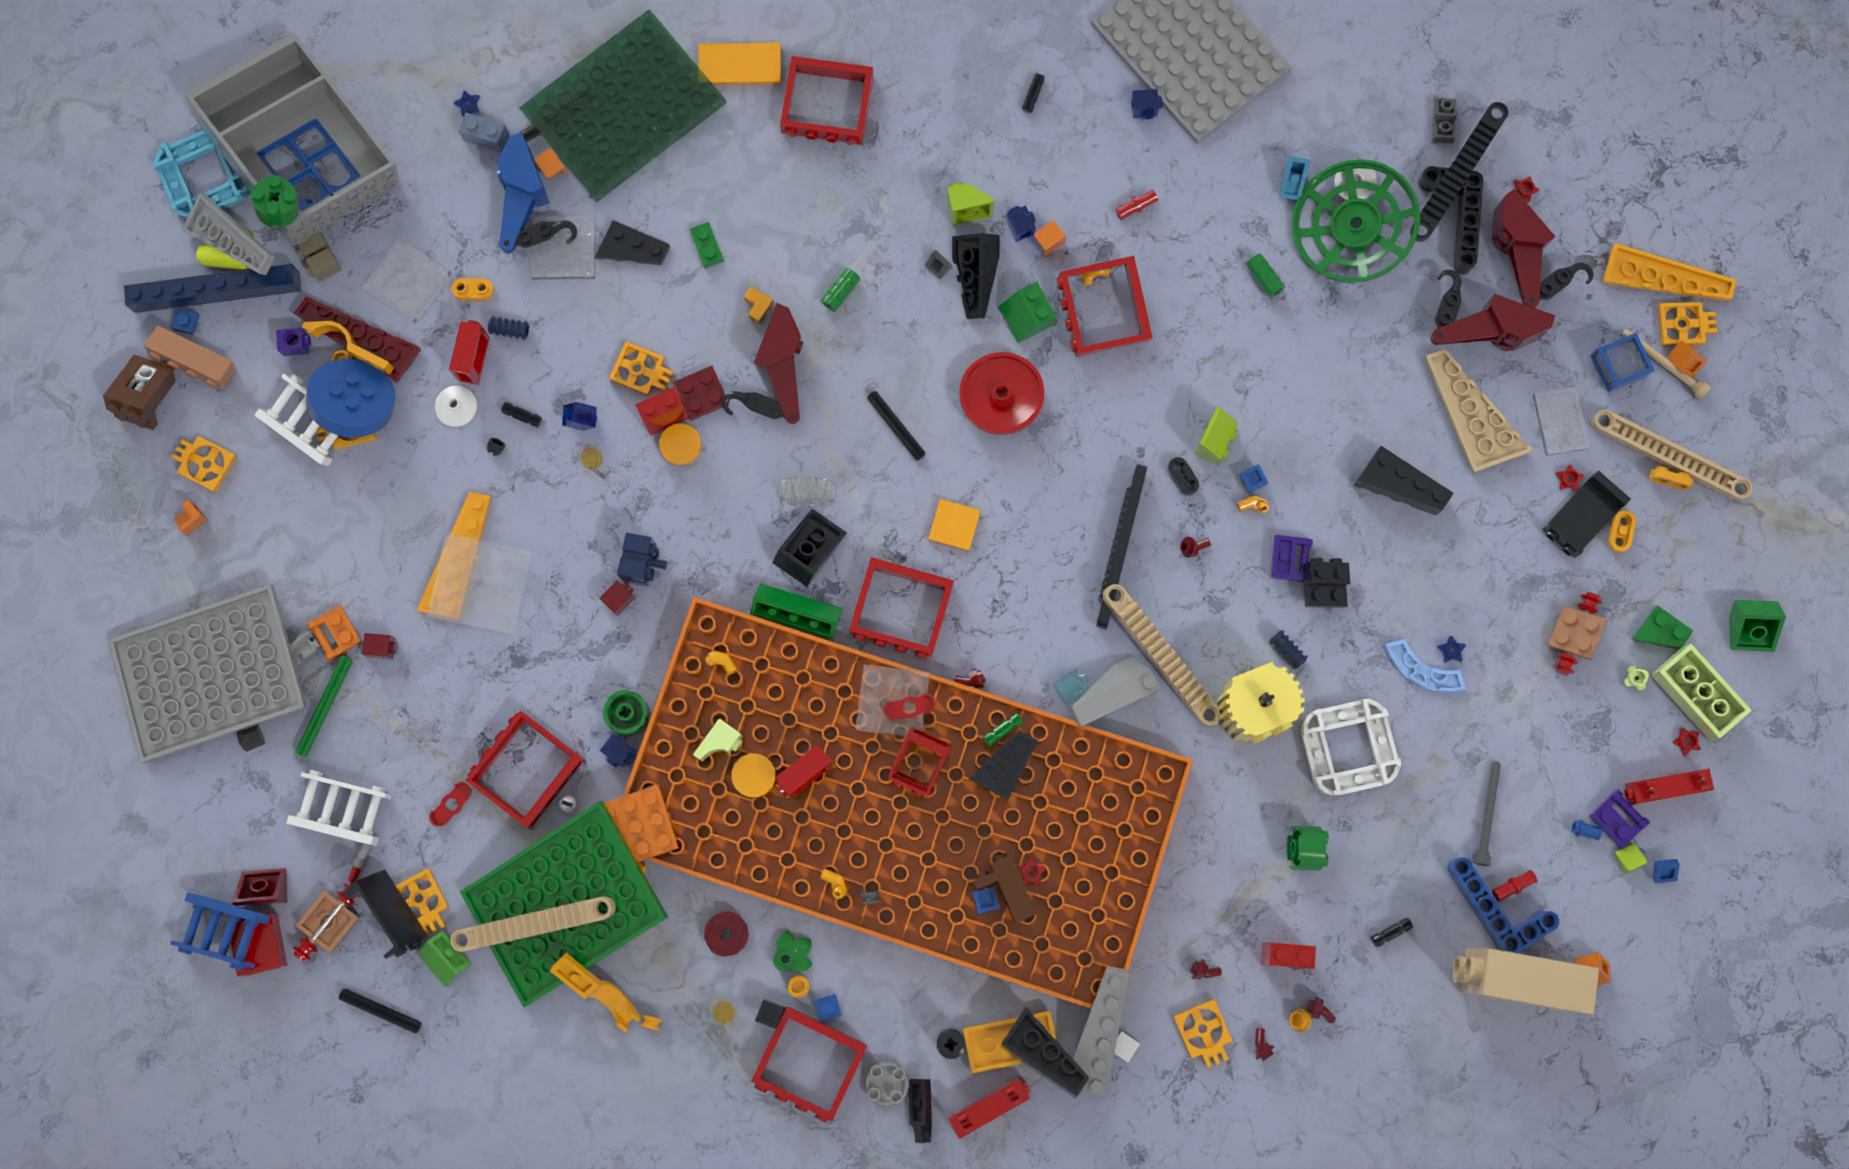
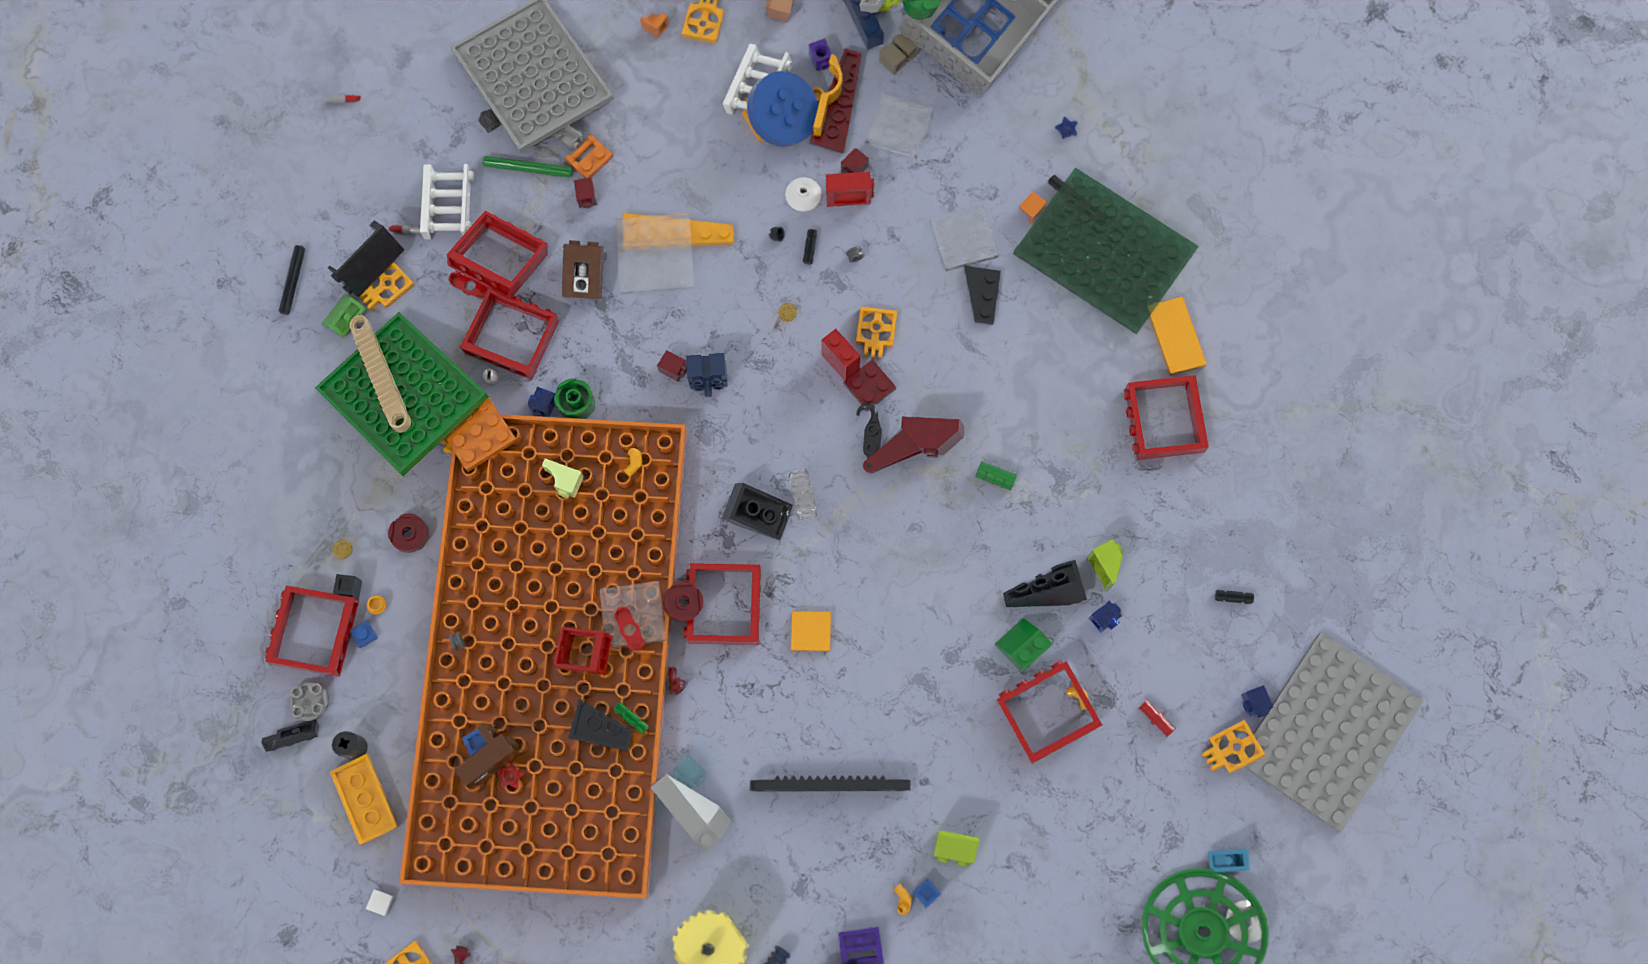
camera: 75 degrees right, 5 degrees down
(164, 907) = (342, 98): none -> light grey piece
(217, 909) = (343, 147): blue fence -> none
(261, 888) = (369, 163): dark red slope -> none
(265, 947) = (325, 173): red brick -> none
(326, 923) = (351, 218): nougat plate -> none
(439, 340) = (854, 162): none -> dark red brick
(446, 783) = (485, 276): none -> red window
(458, 661) = (585, 253): none -> reddish brown brick
(471, 290) = (905, 177): light orange plate -> none
(484, 132) = (1044, 147): sand blue brick -> none
(508, 327) = (881, 214): dark blue piece -> none
(522, 193) = (1004, 191): blue slope -> none
(546, 367) = (855, 254): none -> dark grey bush
(579, 416) = (819, 291): clear blue brick -> none
(588, 985) = (338, 429): light orange piece -> none
(651, 1022) = (322, 492): light orange bush -> none
(680, 444) = (819, 380): light orange tile -> none
(706, 245) = (1003, 353): green plate -> none
(753, 775) = (541, 515): light orange tile -> none
(760, 302) = (961, 412): light orange piece -> none
(794, 950) = (405, 594): green plate -> none
(796, 611) = (696, 514): green brick -> none
(803, 772) = (550, 554): red window -> none
(837, 883) = (464, 610): light orange arm -> none
(889, 657) = (674, 609): none -> dark red plate
(896, 425) = (886, 557): black axle -> none
(938, 264) = (1045, 554): dark grey slope -> none
(990, 1107) = (303, 795): red brick -> none
(1001, 393) = (940, 640): red dish -> none
(1042, 1053) = (355, 824): black wedge -> none
(1050, 238) = (1099, 646): orange panel -> none
(1100, 1032) = (368, 875): light grey wing -> none
(1161, 655) = (737, 846): tan gear -> none
(1179, 479) = (908, 822): black beam -> none
(1190, 156) = (1219, 755): none -> light orange piece
(1190, 548) = (846, 849): dark red plate -> none
(1265, 275) = (1126, 856): green axle -> none

